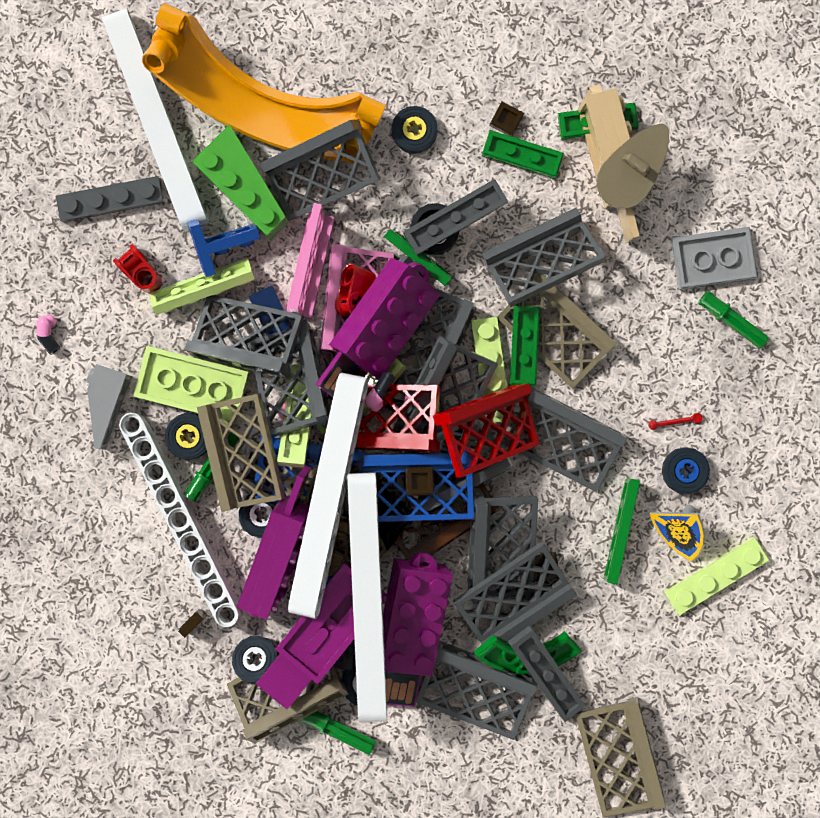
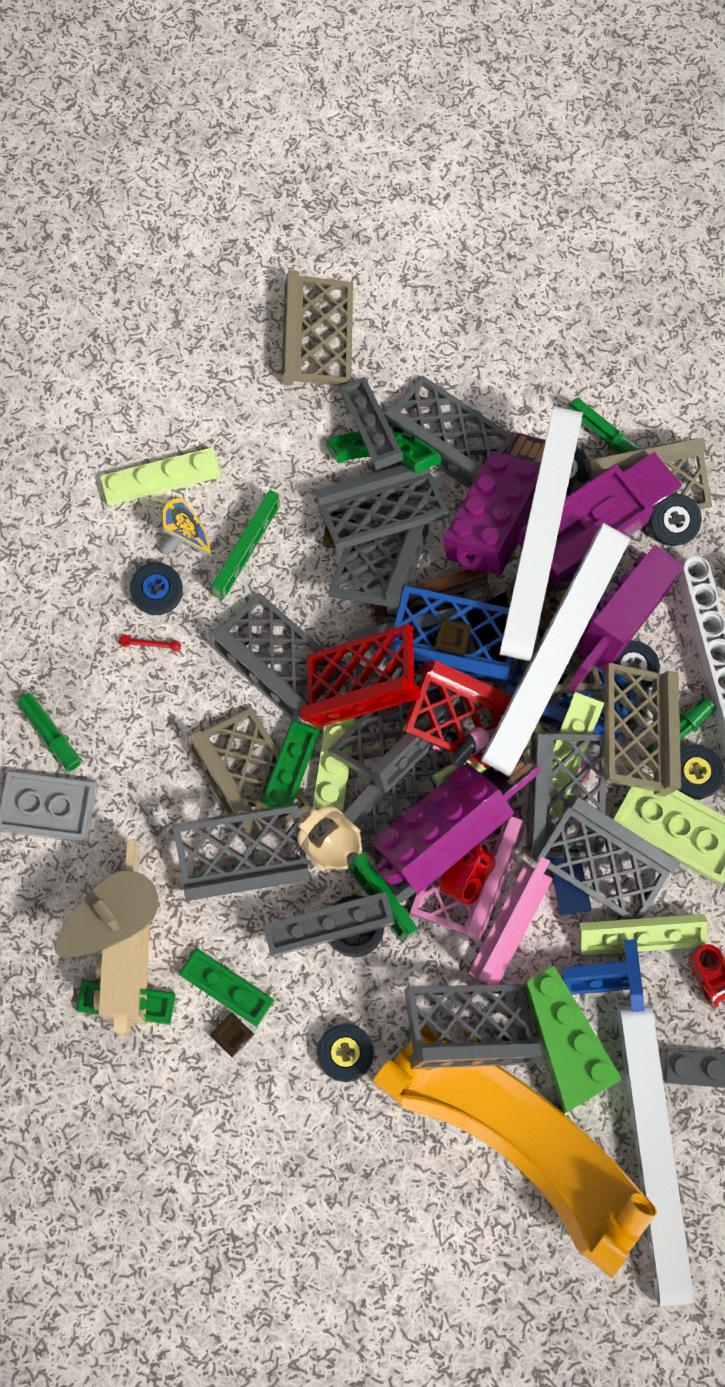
camera: 170 degrees left, 15 degrees down
(471, 281) = (335, 844): none -> tan helmet

